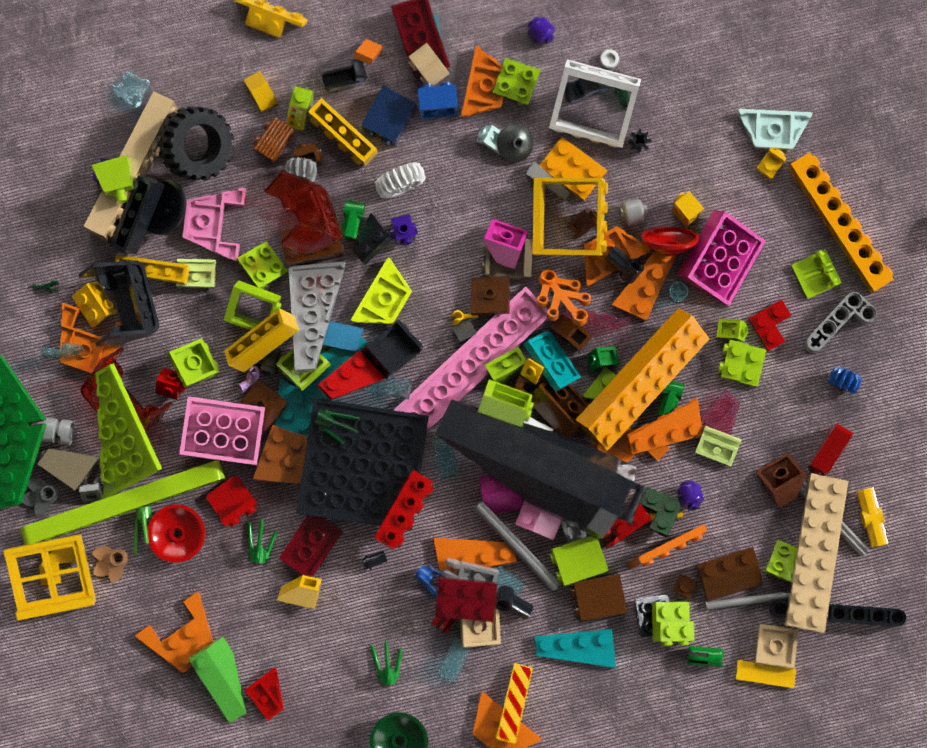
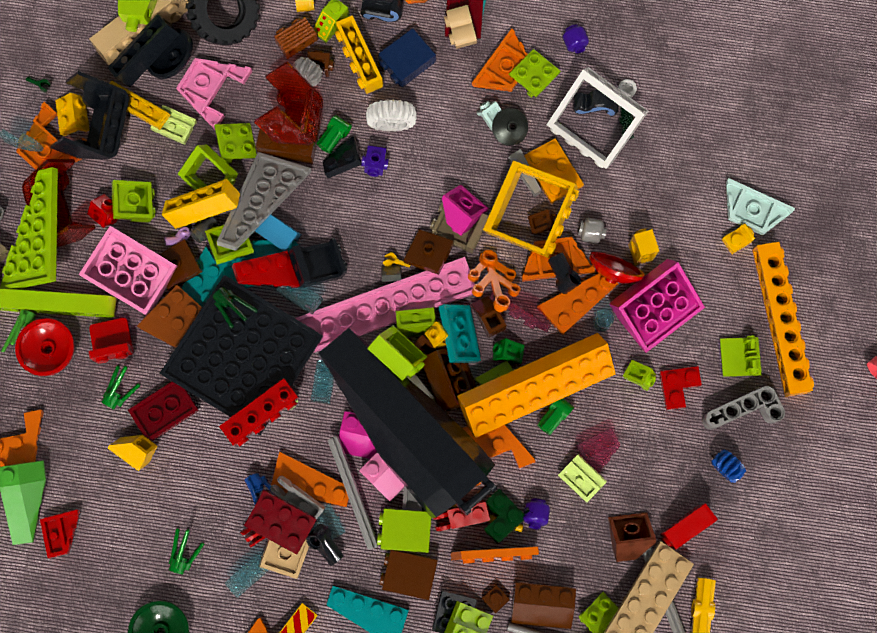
camera: 20 degrees right, 5 degrees down
(374, 560) = (215, 449): black pin -> none
(384, 298) = (331, 215): neon yellow wing -> none
(438, 101) = (455, 60): blue brick -> none
(638, 136) = (621, 174): black gear -> none
(668, 429) = (541, 442): orange wing -> none
(742, 363) = (636, 410): lime plate -> none

